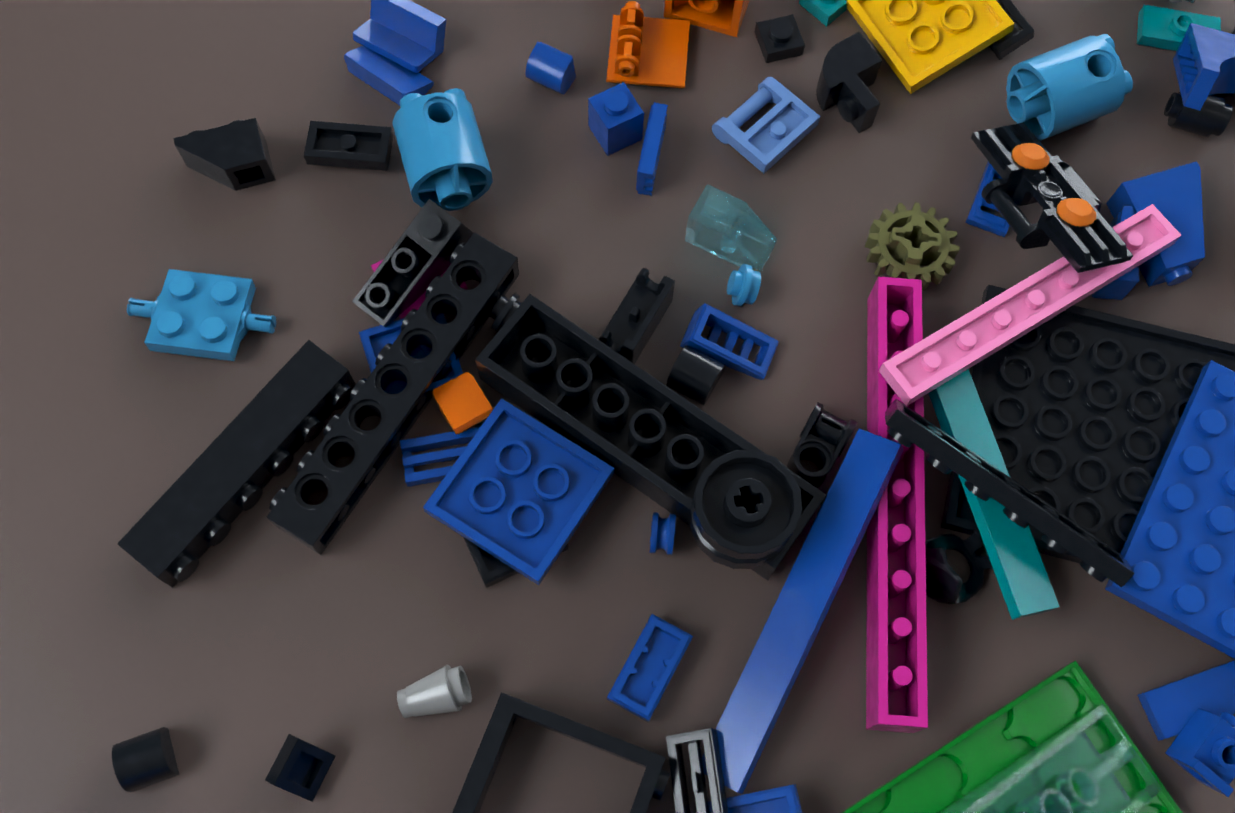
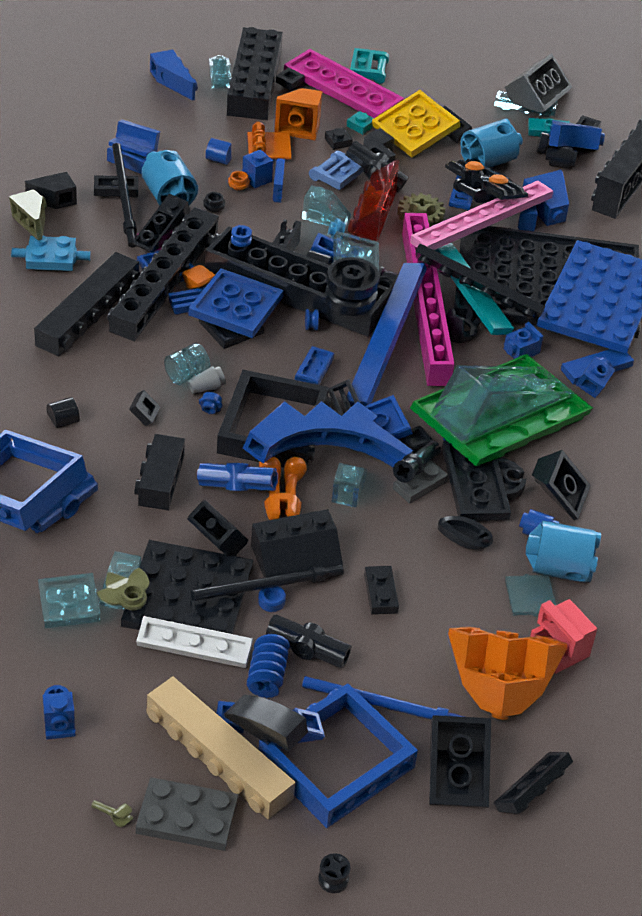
camera: 10 degrees left, 25 degrees down
(174, 218) = (29, 211): none -> olive slope
(356, 253) = (129, 224): none -> black bar
(399, 652) = (186, 363): none -> clear light blue wheel
(433, 757) = (211, 402): none -> blue plate
(524, 196) = (214, 201): none -> black plate
(552, 318) = (241, 236): none -> blue bush
(580, 133) = (238, 180): none -> orange plate
(770, 367) = (353, 246): none -> clear light blue plate
(823, 232) = (375, 203): none -> clear red slope
(841, 130) = (372, 162): none -> black piece
(1085, 619) = (523, 341): none -> blue brick
(1165, 74) = (543, 143): none -> black tile

